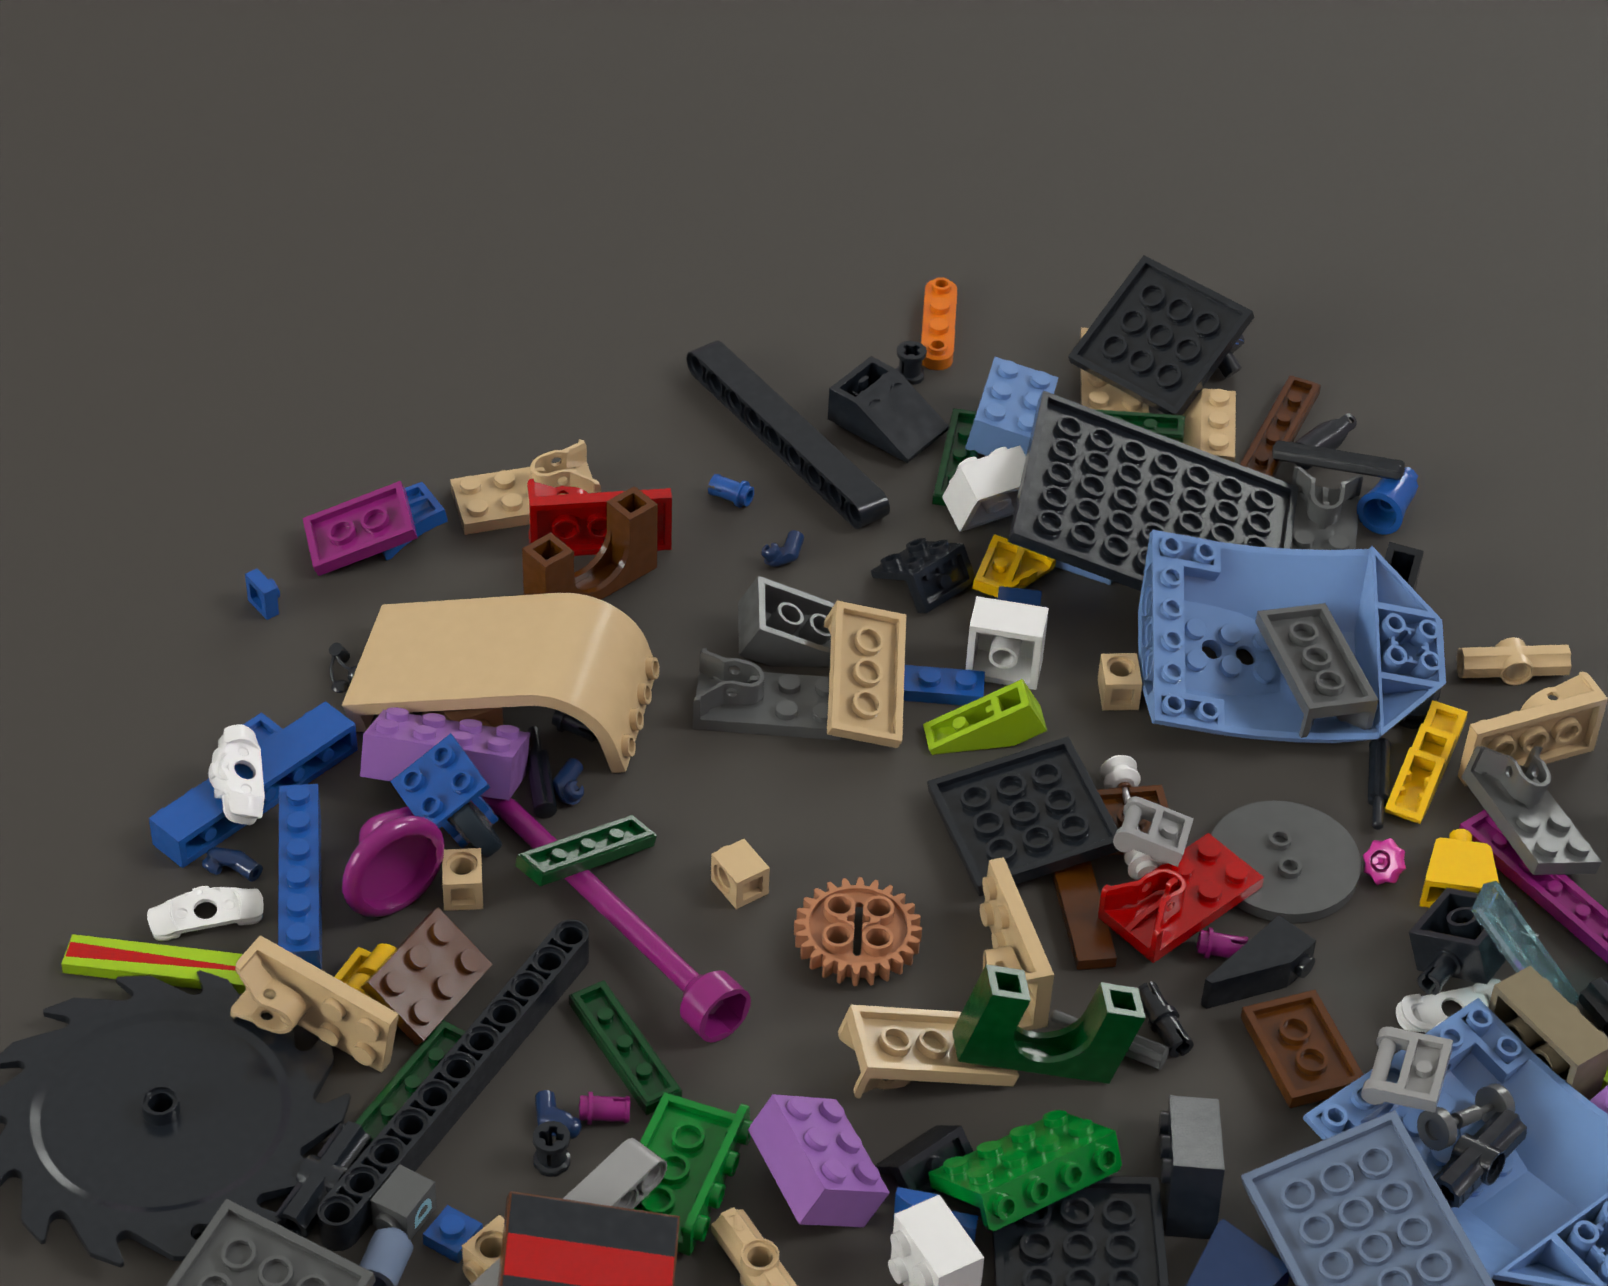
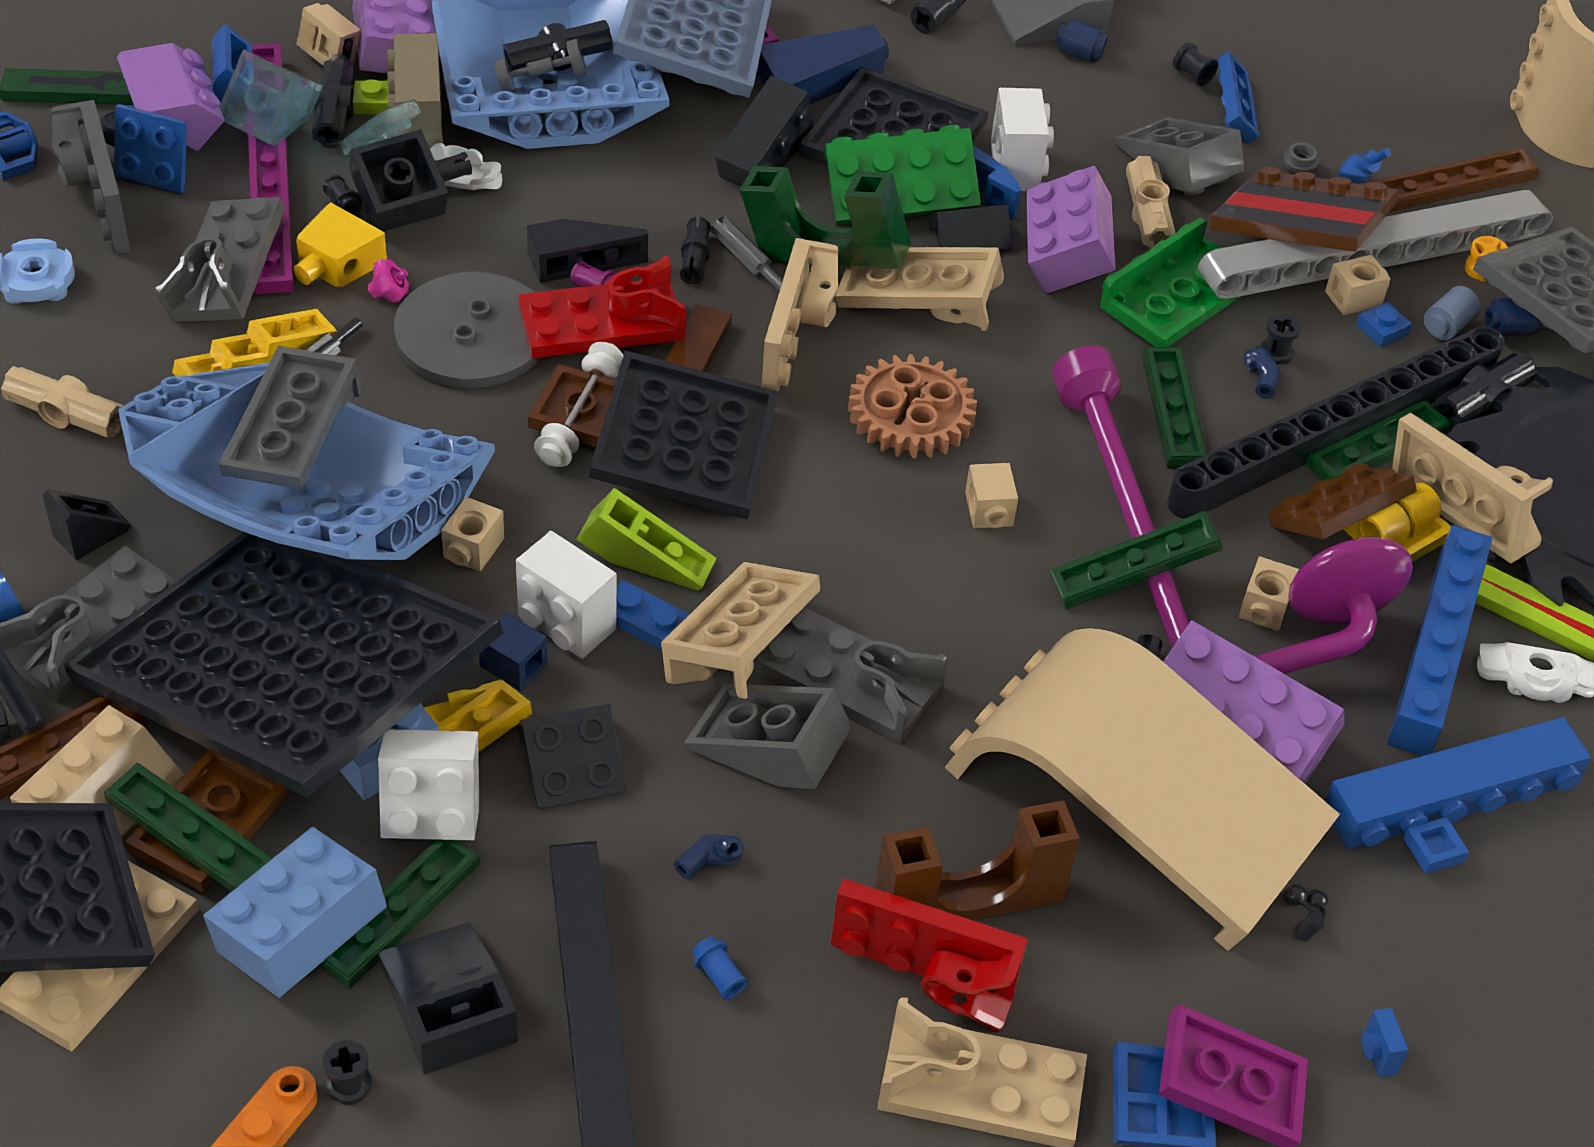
camera: 155 degrees left, 5 degrees up
(234, 859) = (1499, 717): dark blue arm -> none
(240, 797) = (1482, 780): white piece -> none
(404, 1201) = (1418, 338): dark grey brick -> none
(443, 787) = (1267, 628): blue plate -> none
(604, 1108) = (1219, 358): magenta pin -> none
(1165, 836) = (582, 340): light grey plate -> none
(1301, 1047) = (602, 184): reddish brown plate -> none
(1420, 1074) = (566, 64): light grey plate -> none
(1559, 726) = (144, 304): tan plate -> none

